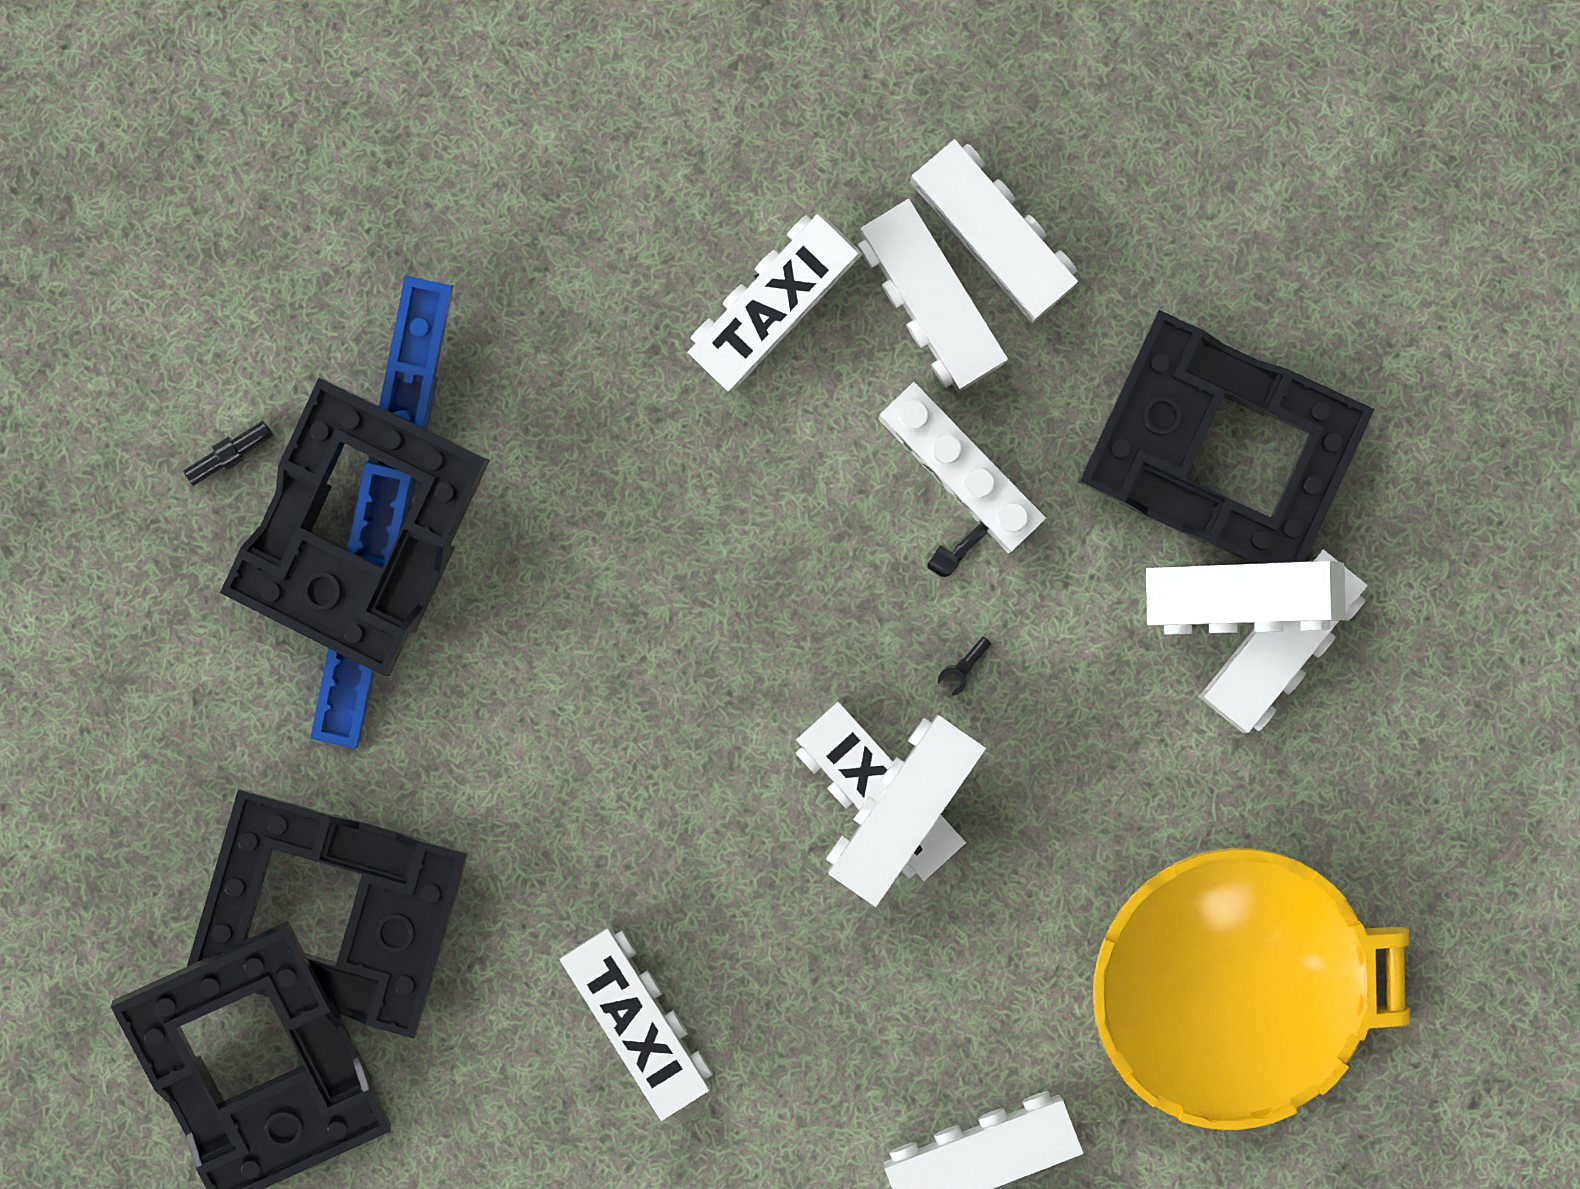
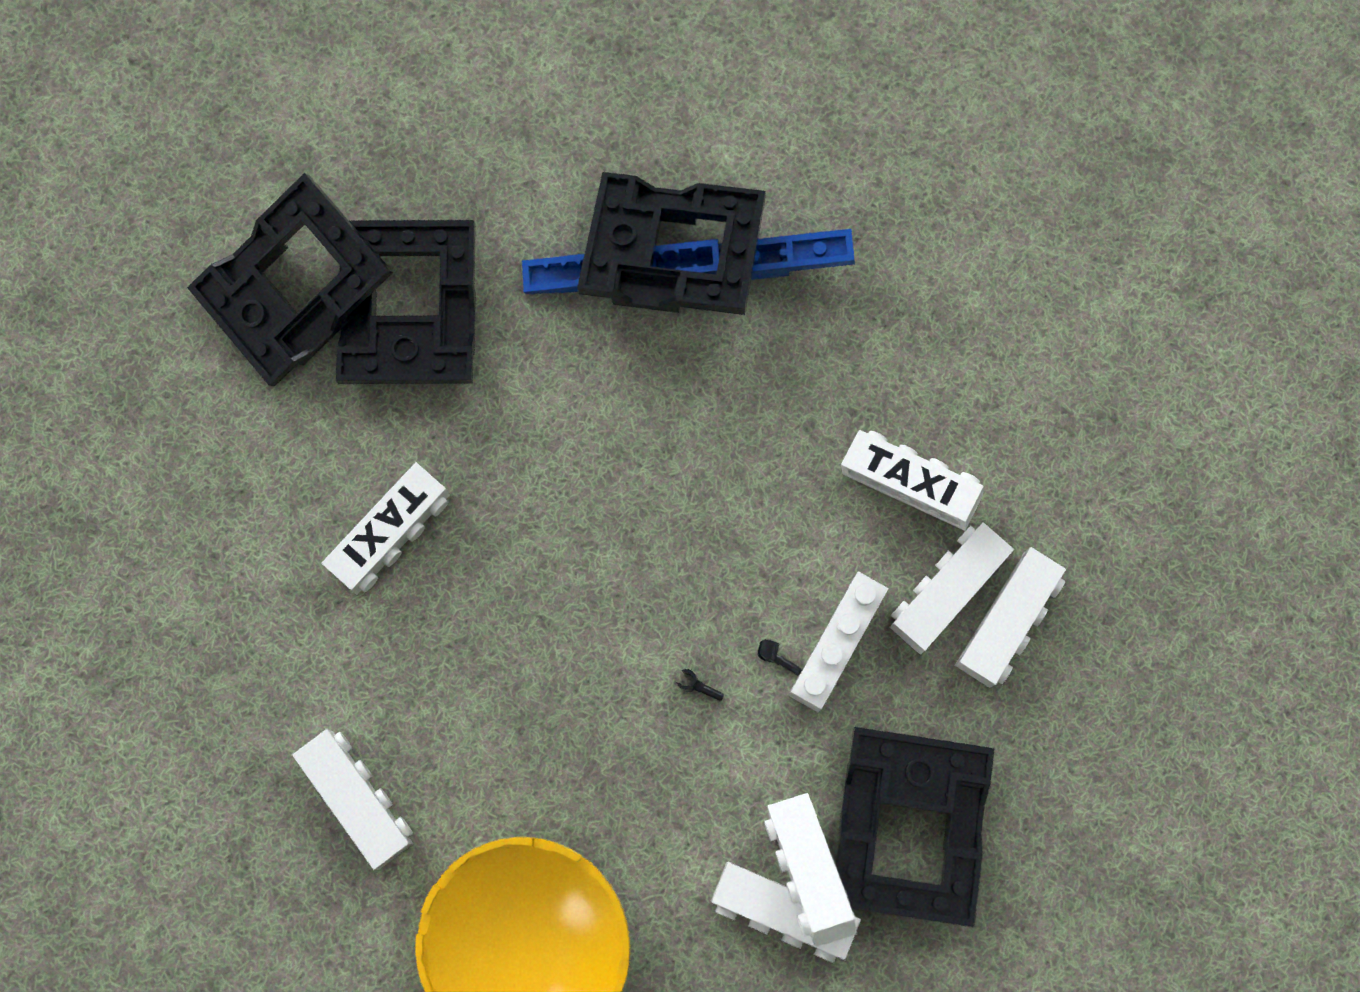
camera: 65 degrees right, 10 degrees down
(228, 453) = (697, 156): black bar -> none
(856, 768) = (594, 650): white brick -> none
(905, 810) = (585, 667): white brick -> none

